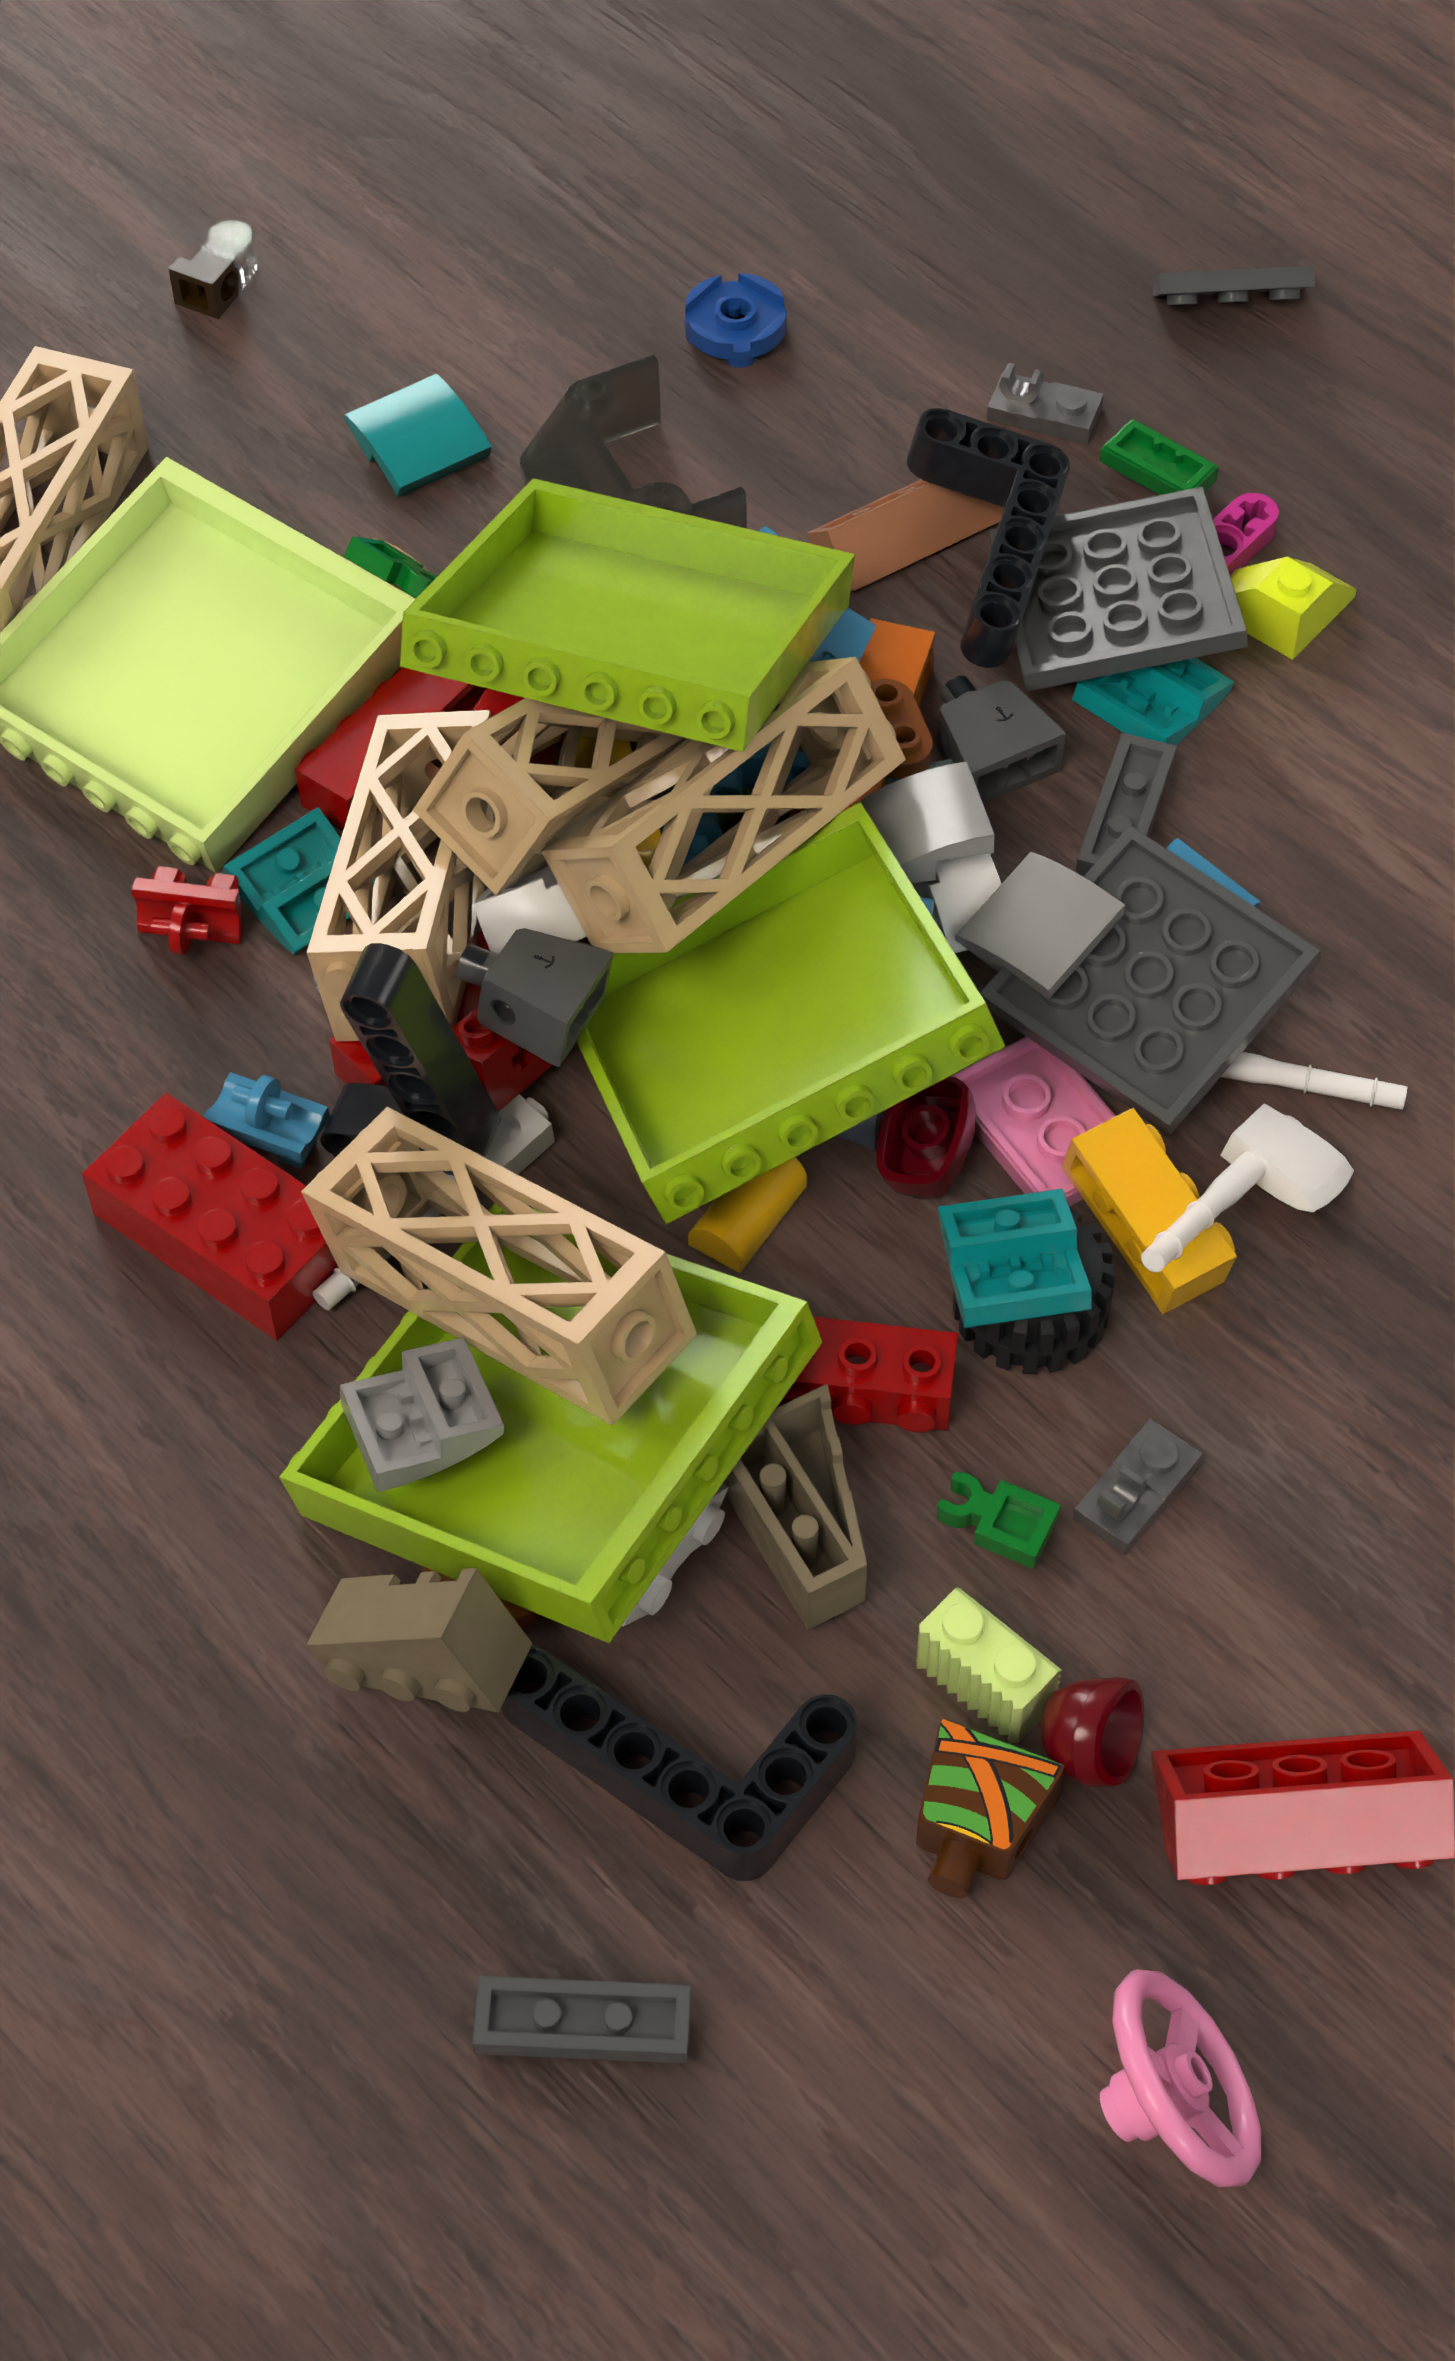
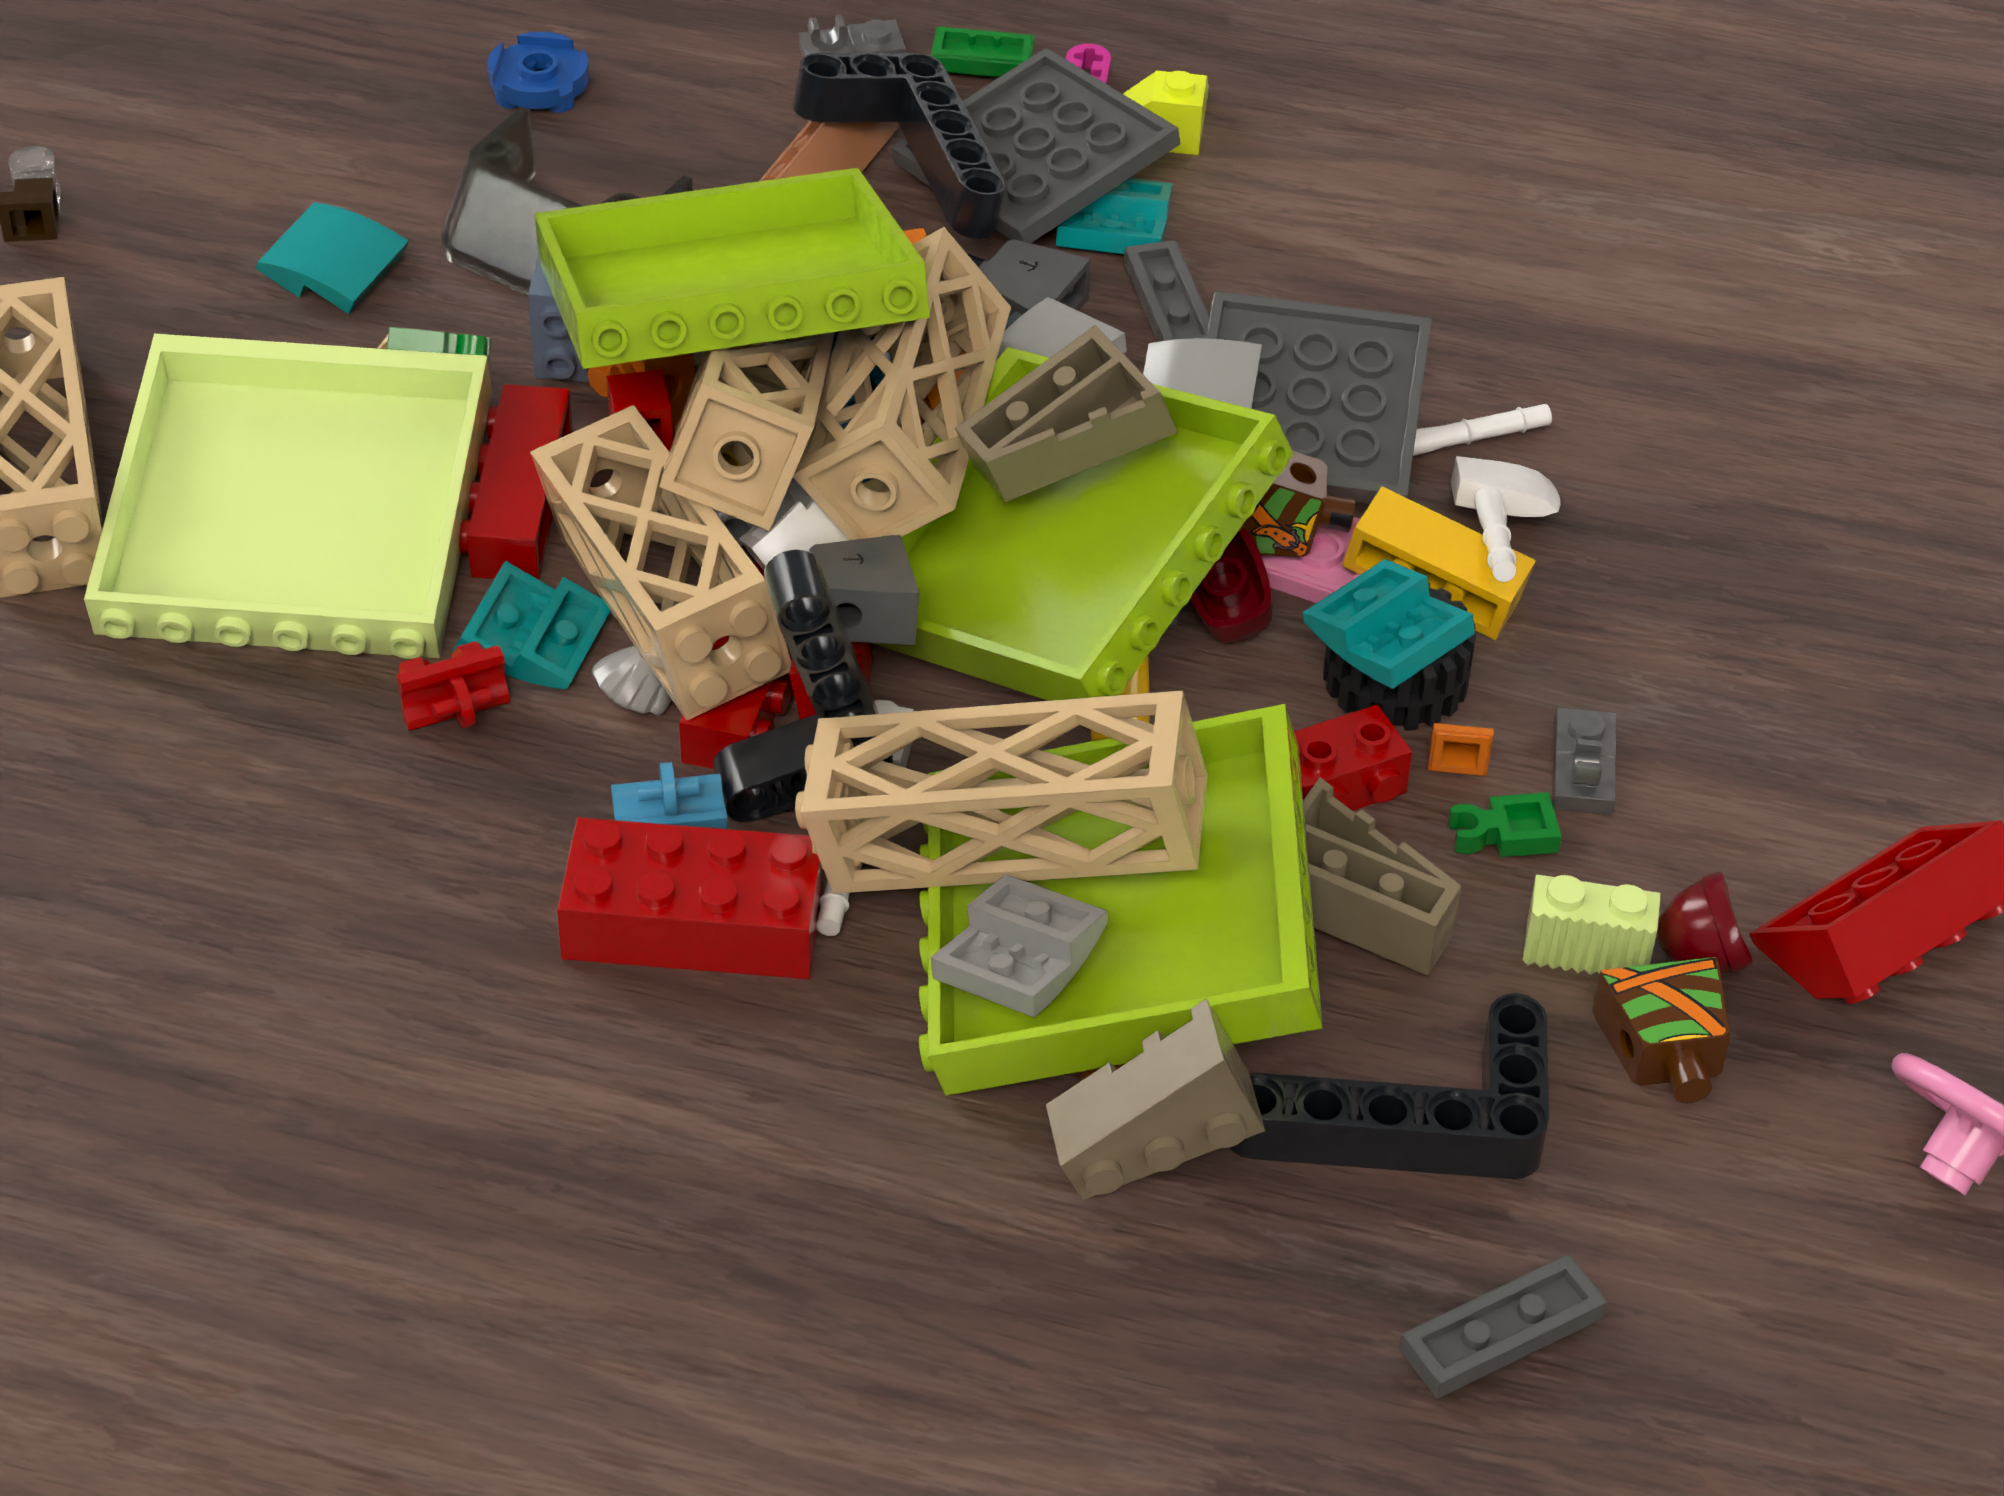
camera: 35 degrees left, 10 degrees down
(815, 908) = (1065, 418): none -> dark tan wedge
(1021, 1415) = (1459, 749): none -> orange slope
(1032, 1076) = (1295, 508): none -> torso

